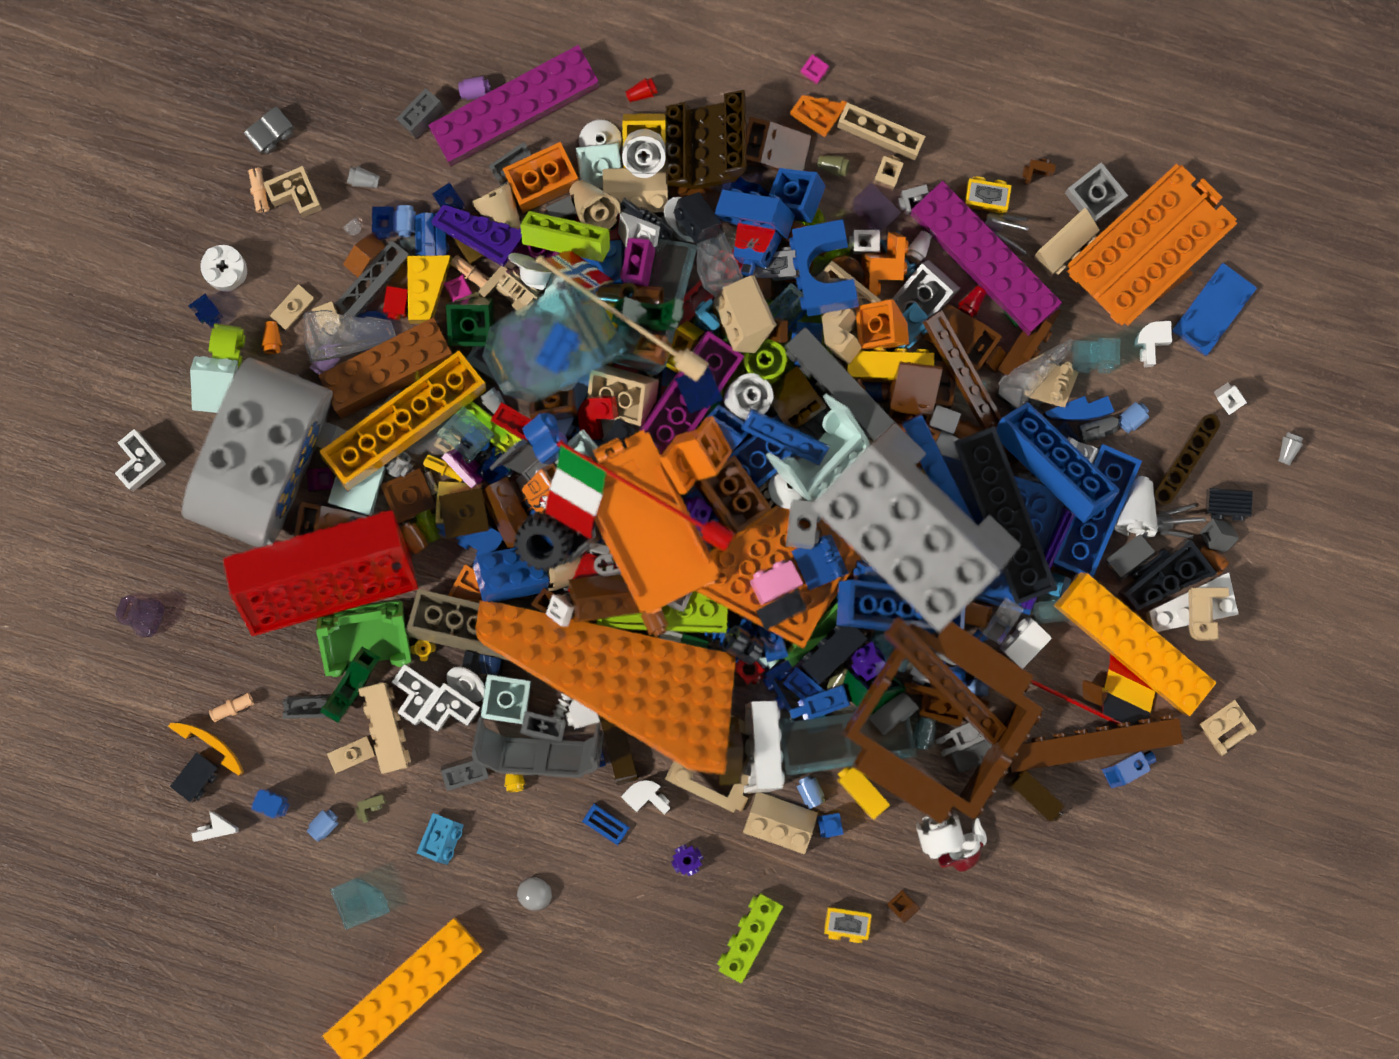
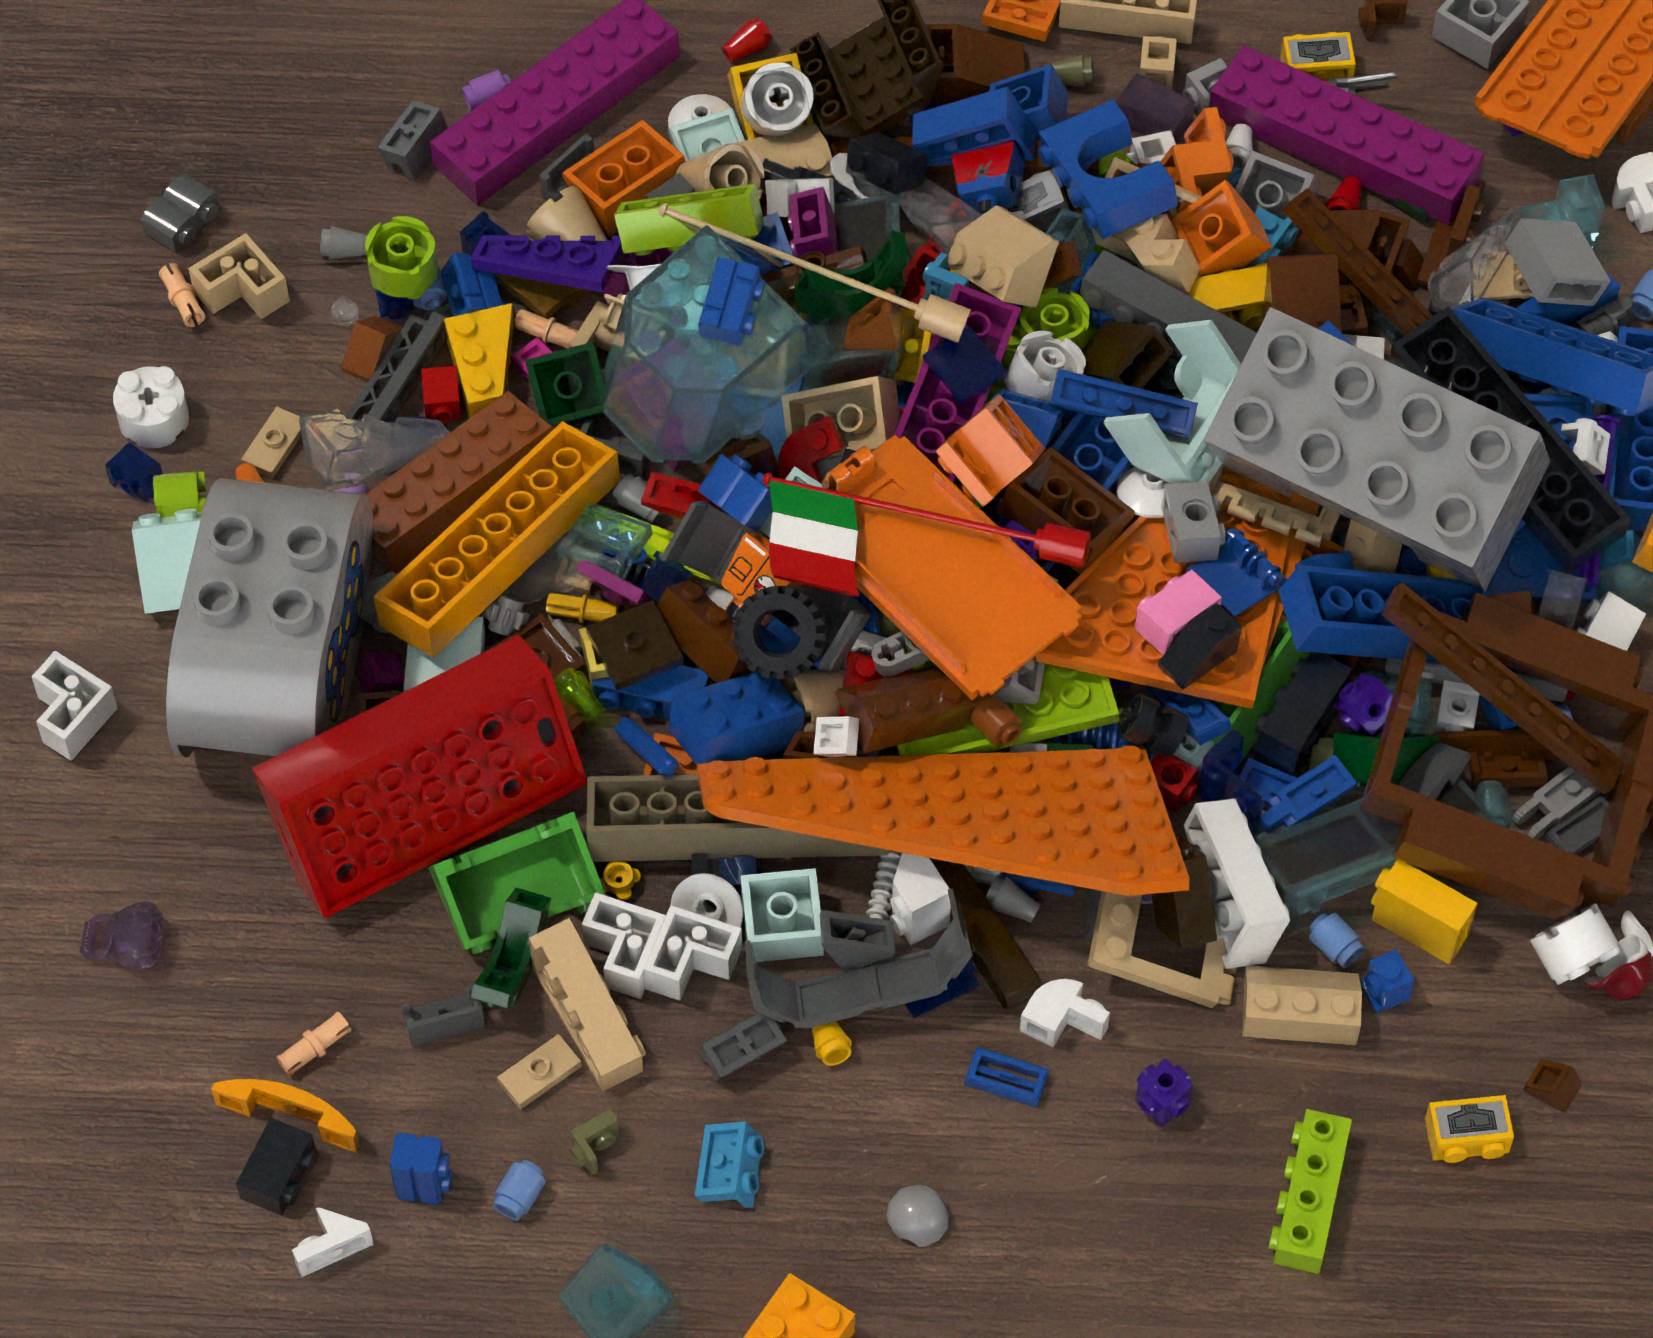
camera: 10 degrees left, 25 degrees down
(390, 199) = (401, 257): none -> lime brick
(457, 574) = (646, 747): none -> blue axle
(1053, 529) = (1590, 444): none -> white bracket
(1067, 243) = (1451, 92): tan slope -> none
(1078, 393) = (1557, 262): none -> light grey brick

